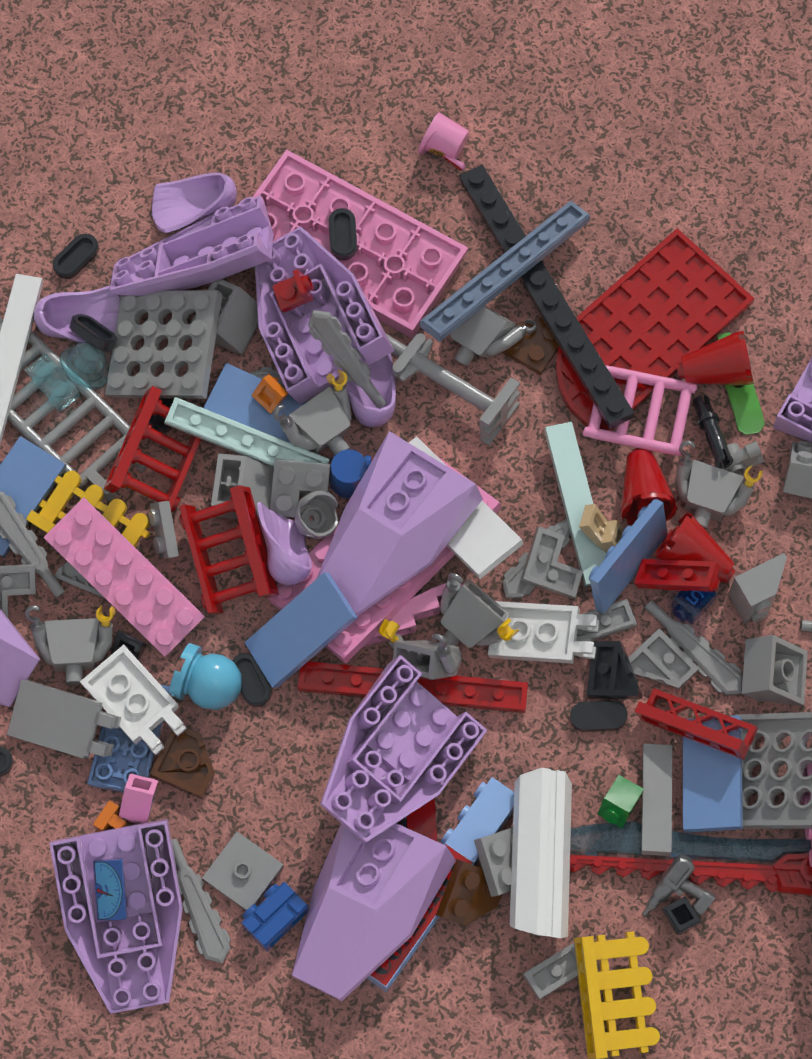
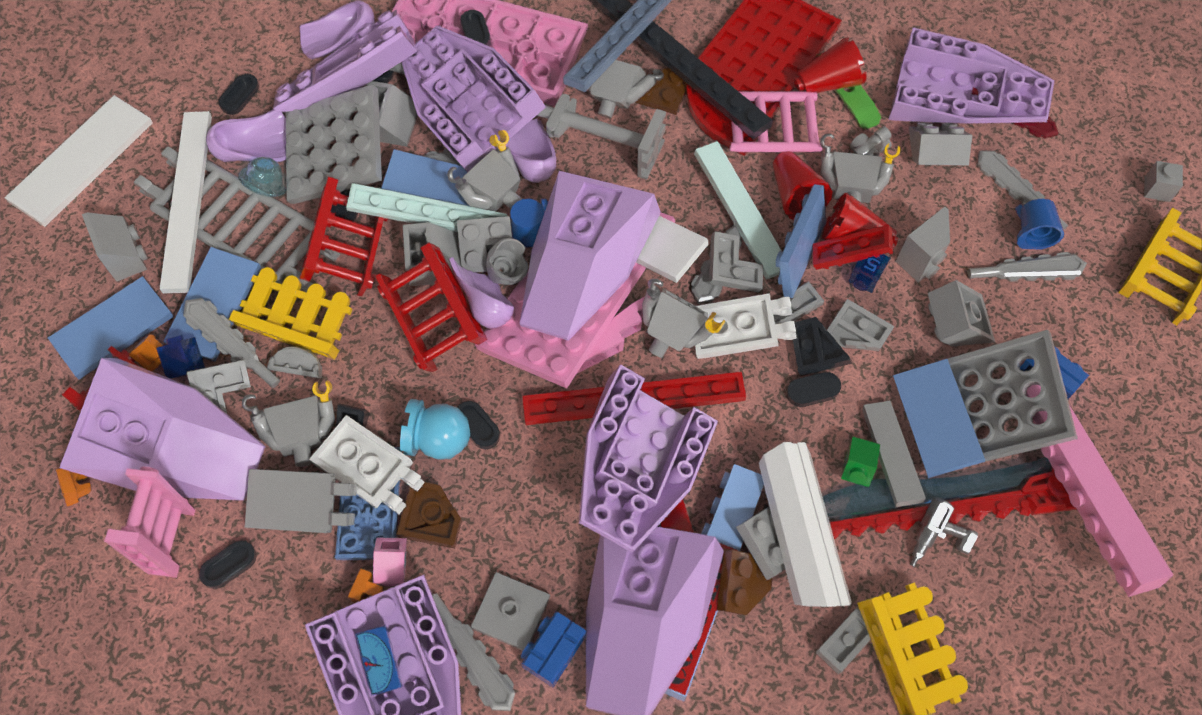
camera: 15 degrees left, 5 degrees down
(52, 382) = (234, 197): clear light blue plate -> none
(93, 332) = (265, 148): black tile -> none
(124, 577) = (334, 351): bright pink plate -> none
(165, 539) = (361, 294): light grey plate -> none
(269, 393) = (438, 165): orange tile -> none
(294, 291) = (443, 75): red bracket -> none
(301, 630) = (516, 365): medium blue tile -> none
(338, 344) = (492, 104): light grey sword -> none
(429, 657) = (652, 365): light grey torso -> none
(598, 529) = (772, 228): tan slope -> none
(681, 916) = (951, 557): black slope -> none
(695, 729) = (910, 379): red fence -> none
(709, 424) = (836, 122): black pin -> none
(724, 676) = (916, 331): light grey sword -> none

